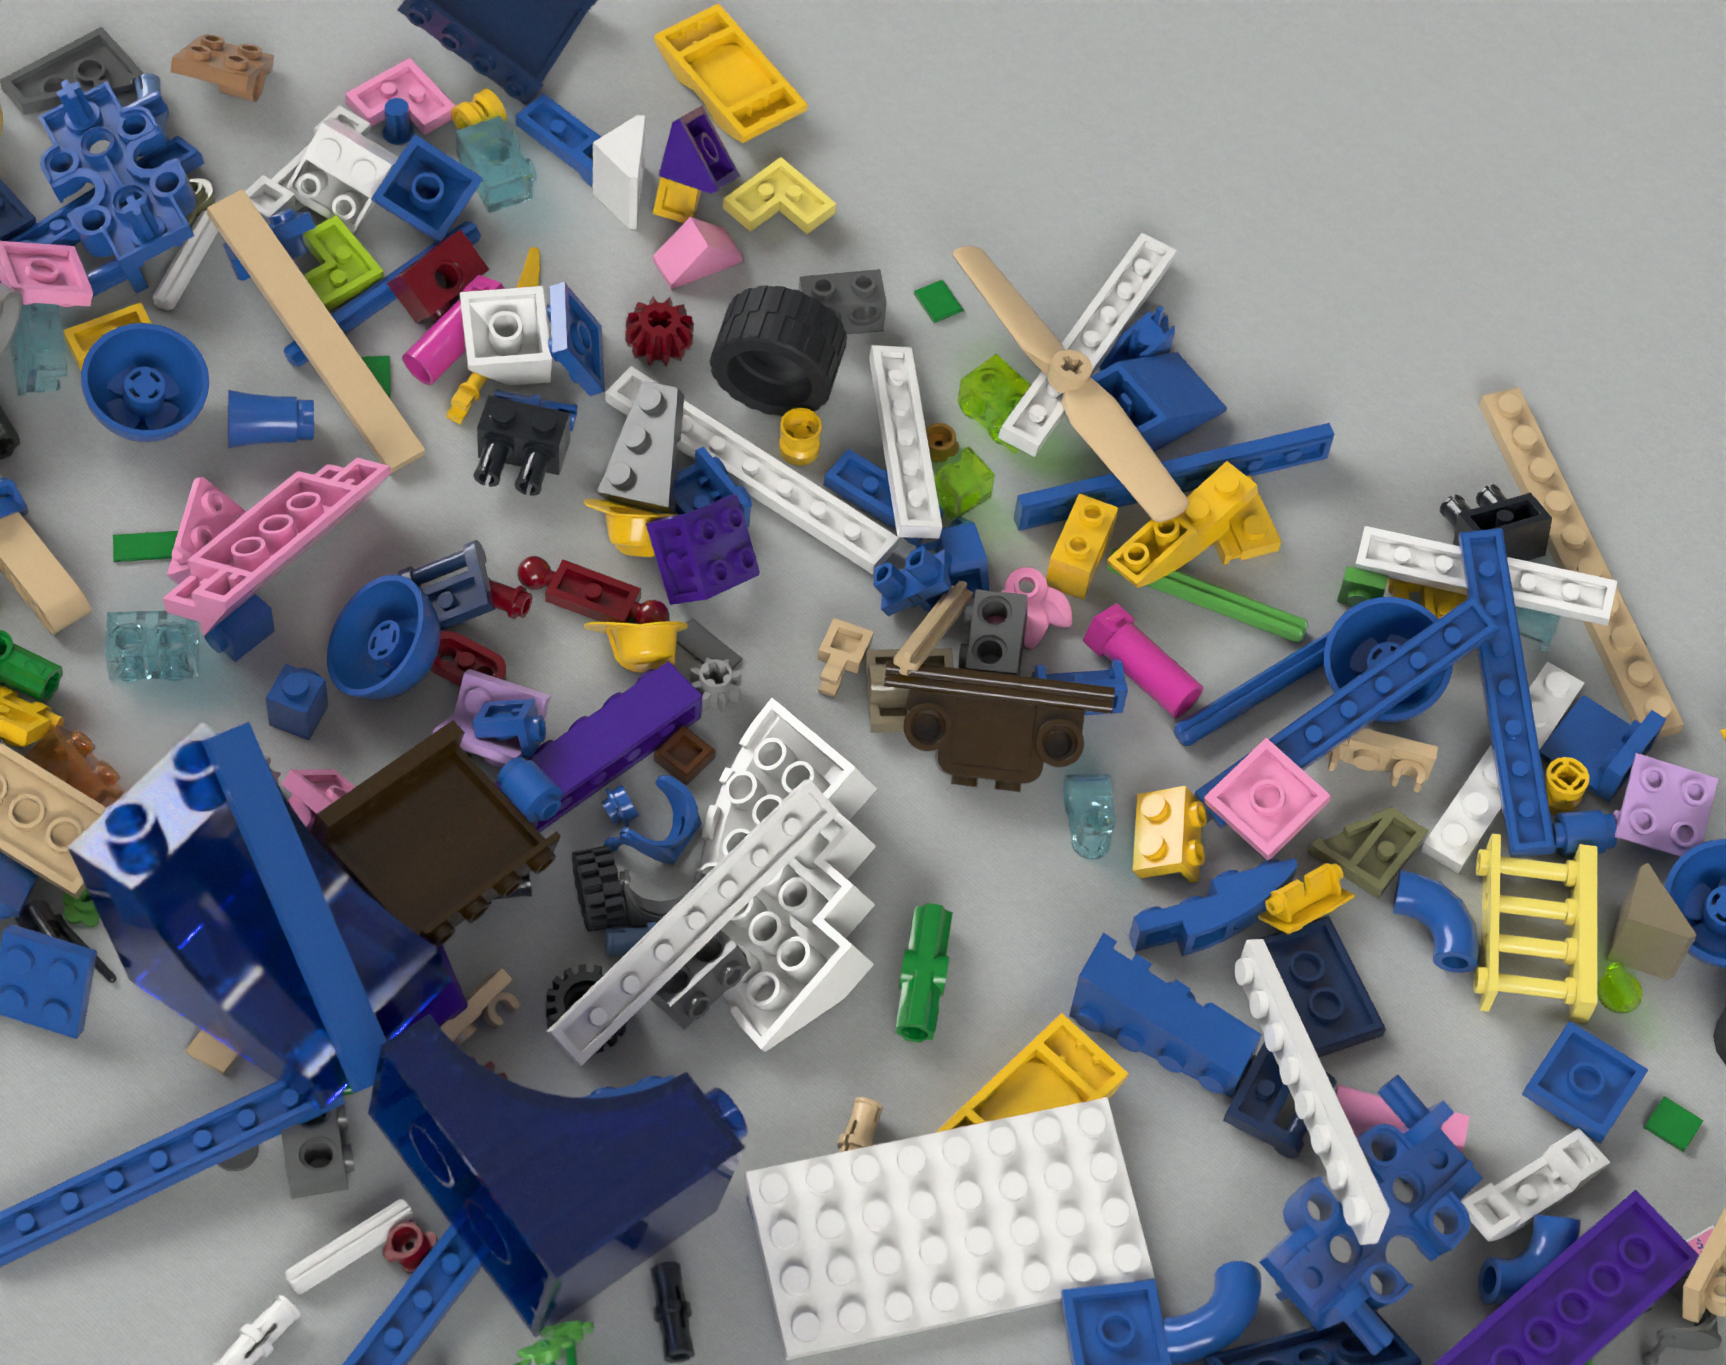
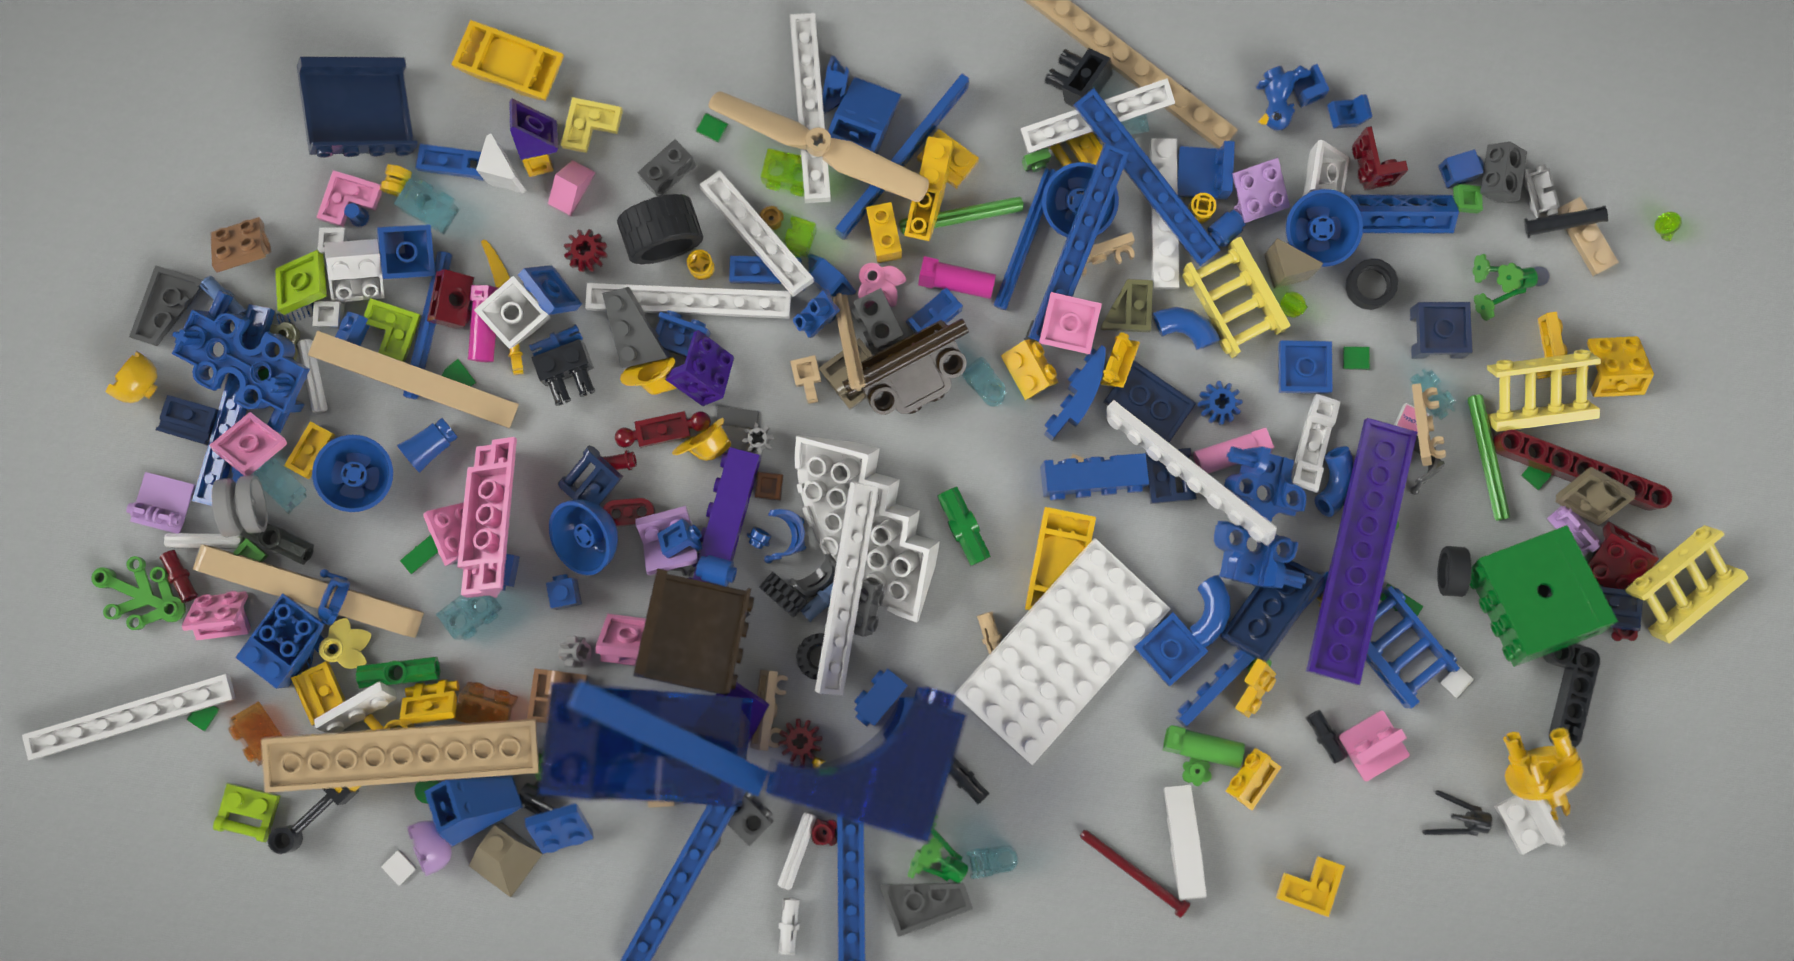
camera: 25 degrees left, 25 degrees up
(206, 175) = (280, 315): none -> blue piece
(263, 147) = (300, 282): none -> lime plate
(1438, 1045) = (1225, 394): none -> blue gear

